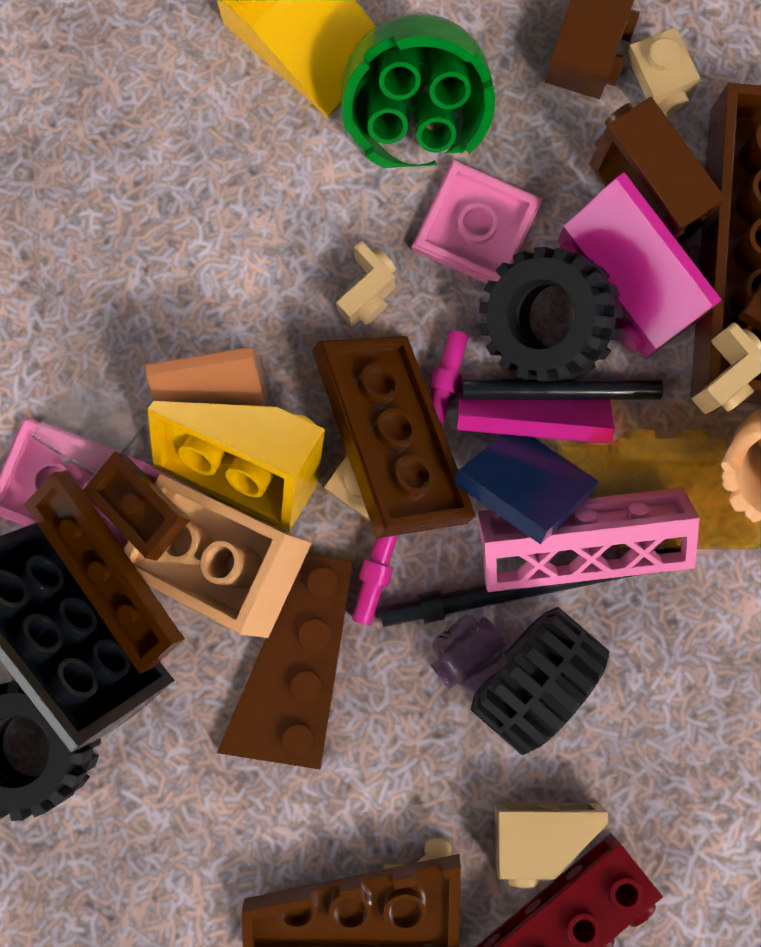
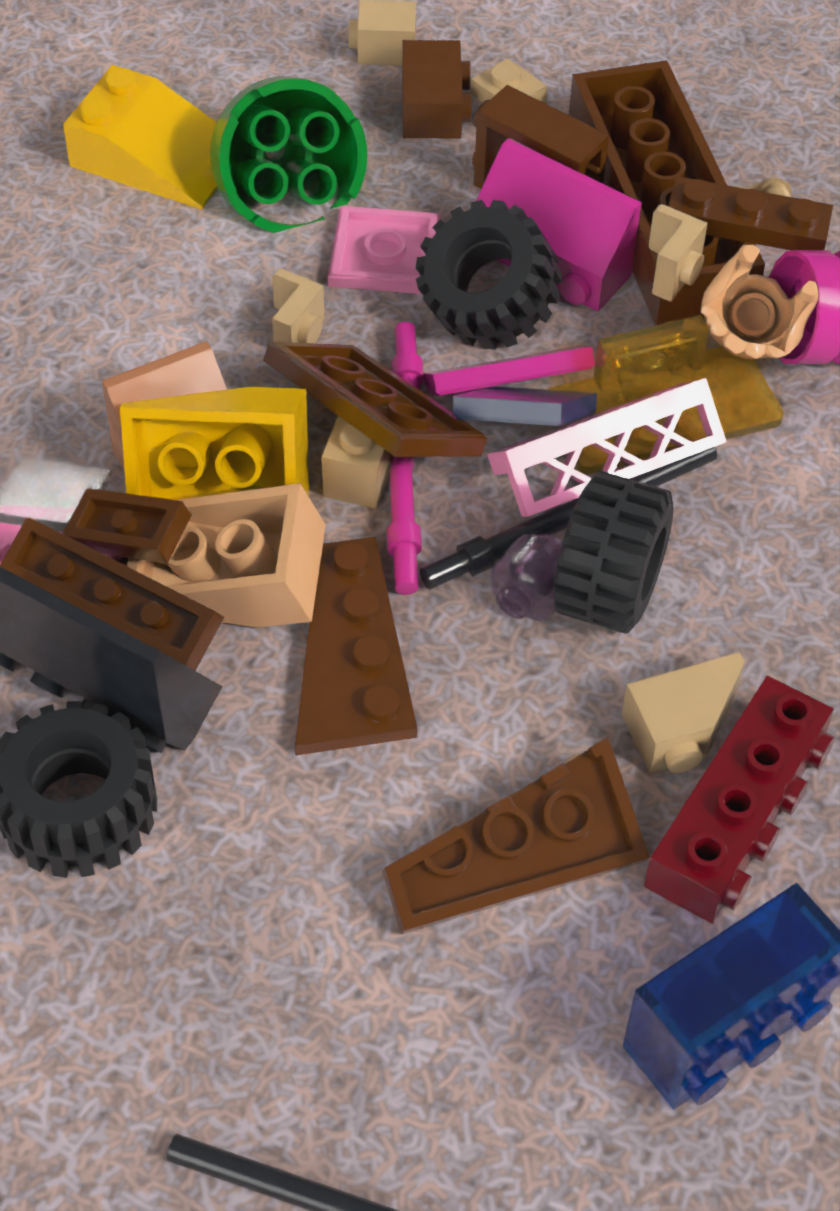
camera: 25 degrees left, 30 degrees down
(560, 389) = (522, 346): black bar -> none

